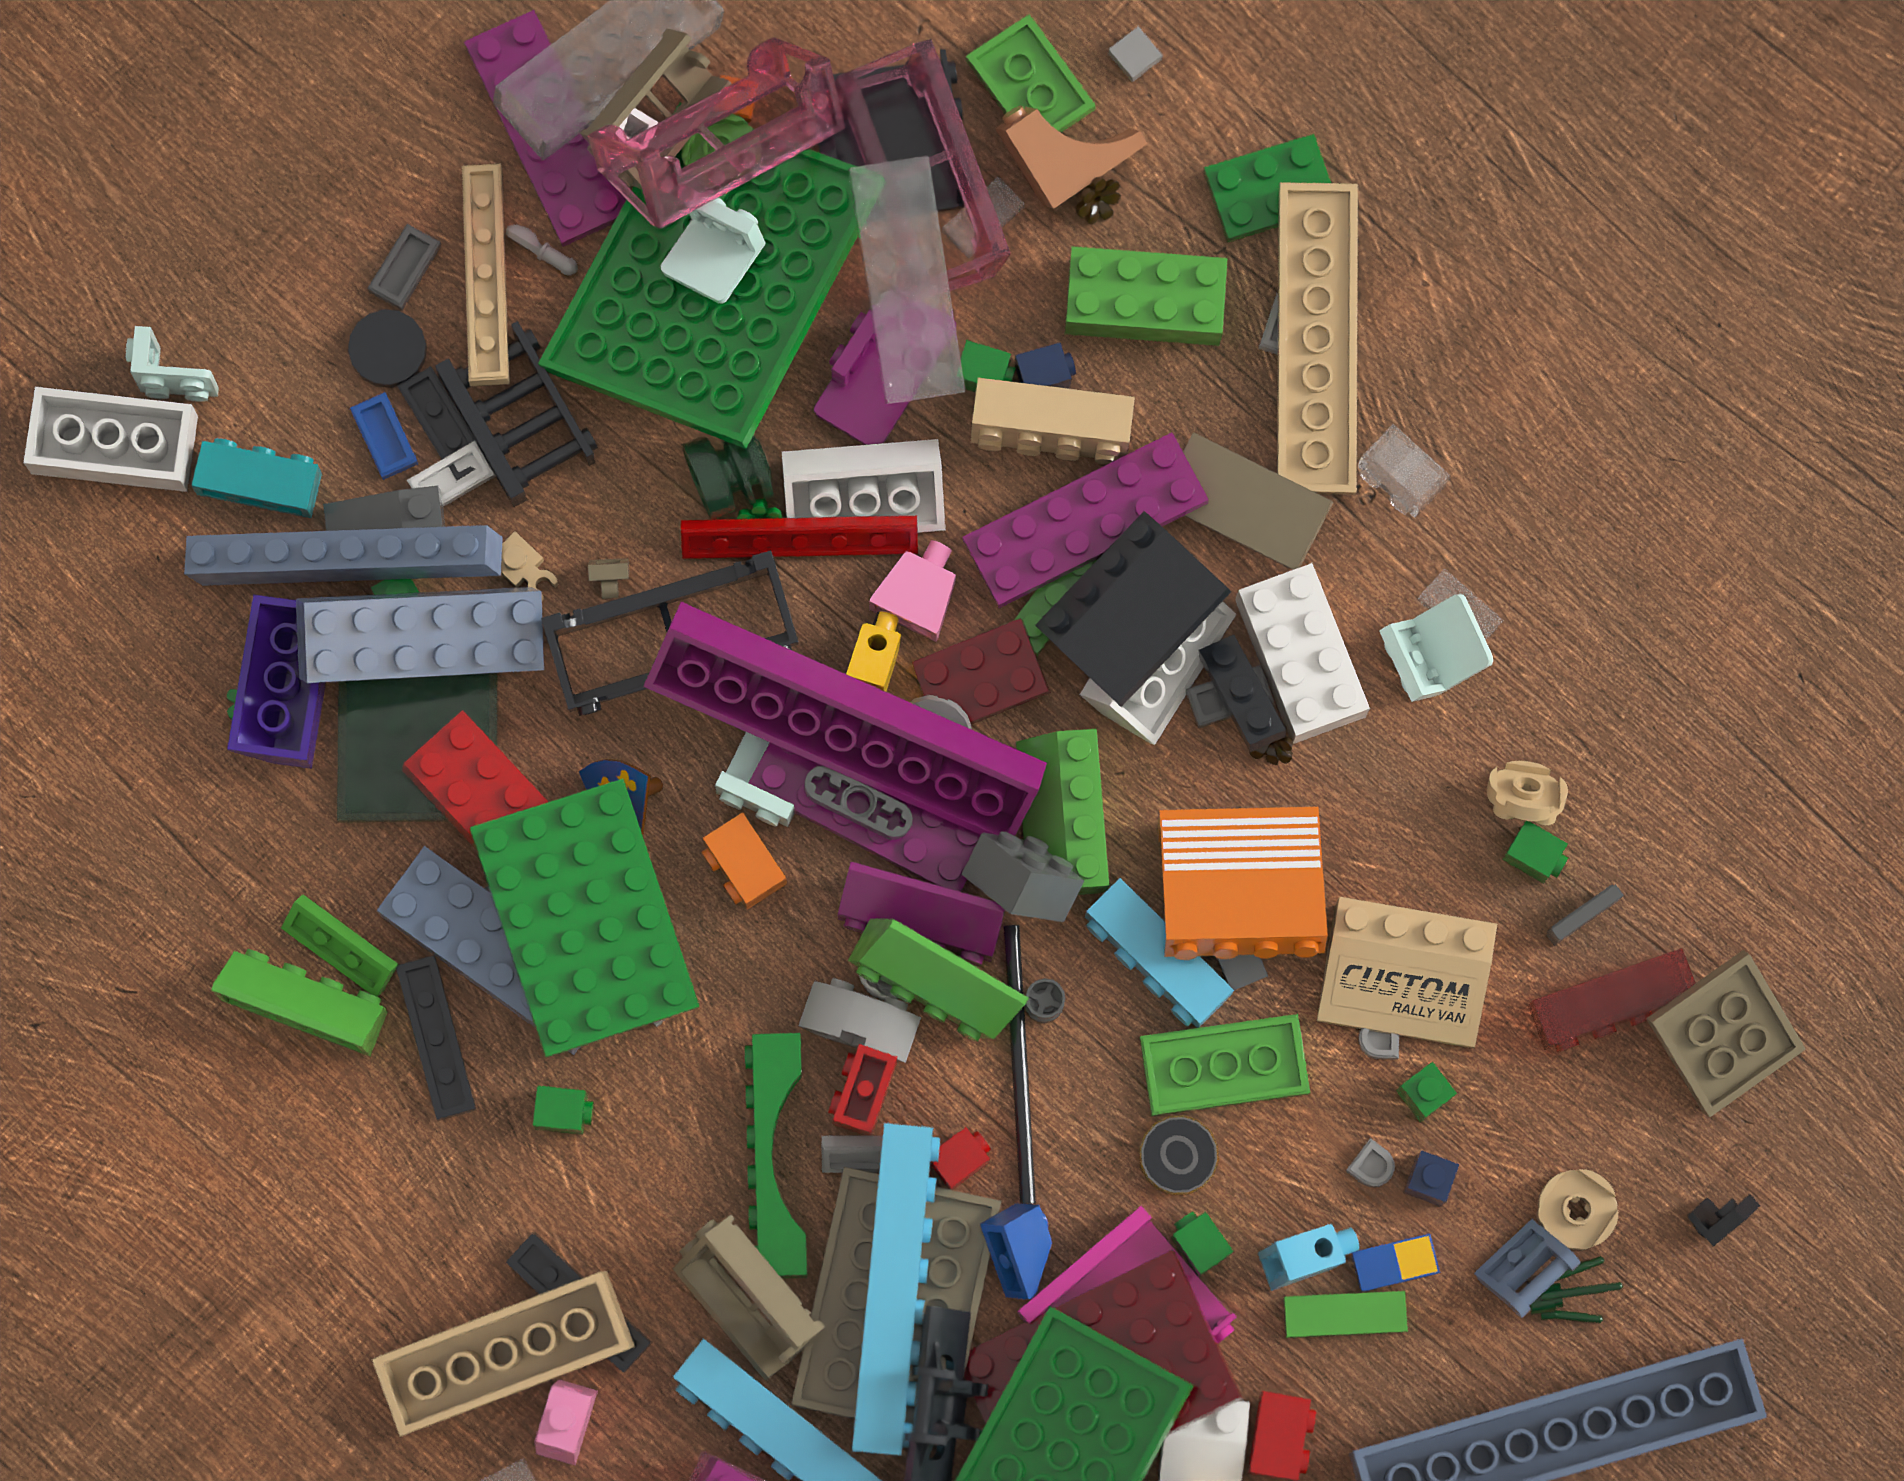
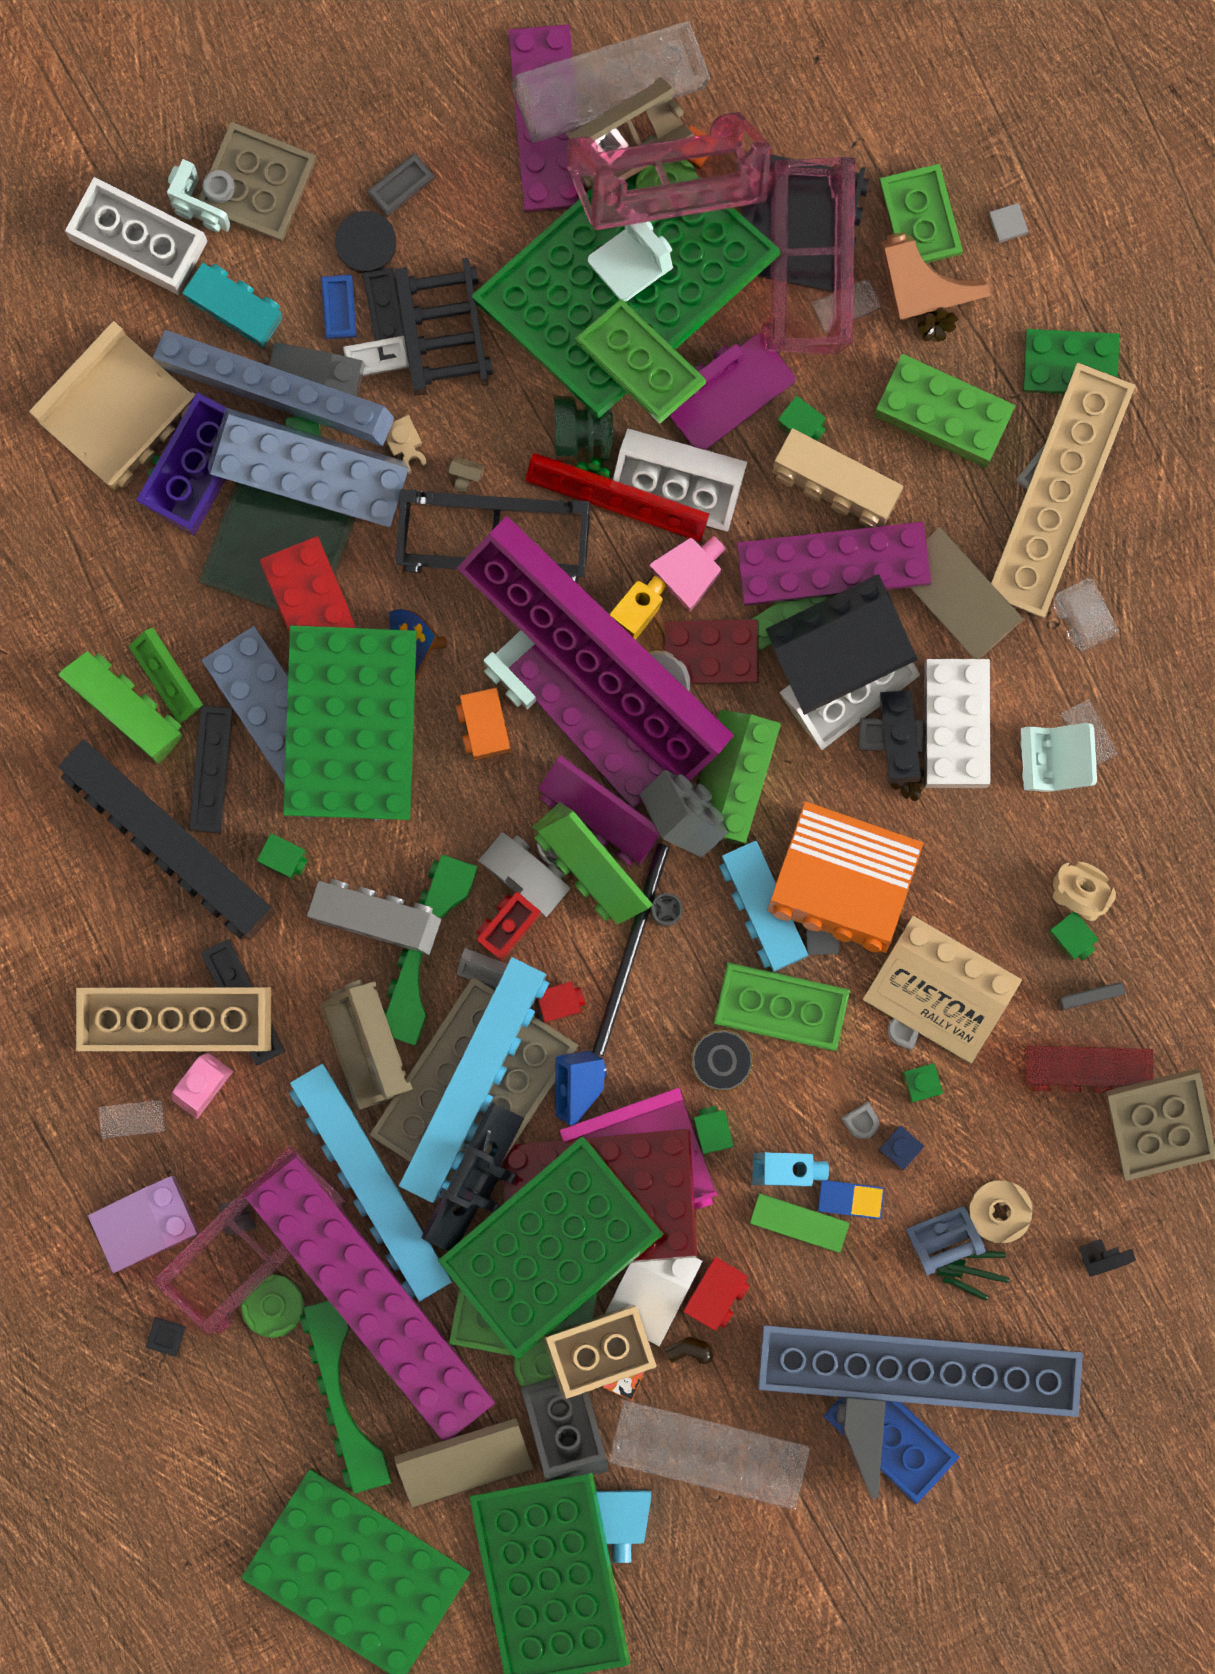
camera: 25 degrees right, 5 degrees up
(157, 652) = (113, 407): none -> tan panel
(188, 345) = (218, 186): none -> light grey tile
(232, 322) = (266, 179): none -> dark tan plate
(415, 1140) = (163, 836): none -> black brick
(485, 275) = (458, 213): tan tile -> none
(528, 239) = (500, 197): light grey piece -> none
(701, 1138) = (374, 917): none -> light grey brick
(770, 363) = (640, 360): none -> bright green tile
(890, 804) = (597, 711): dark grey beam -> none
(906, 280) = (766, 335): clear brick -> none
(1046, 367) = (848, 438): dark blue brick -> none

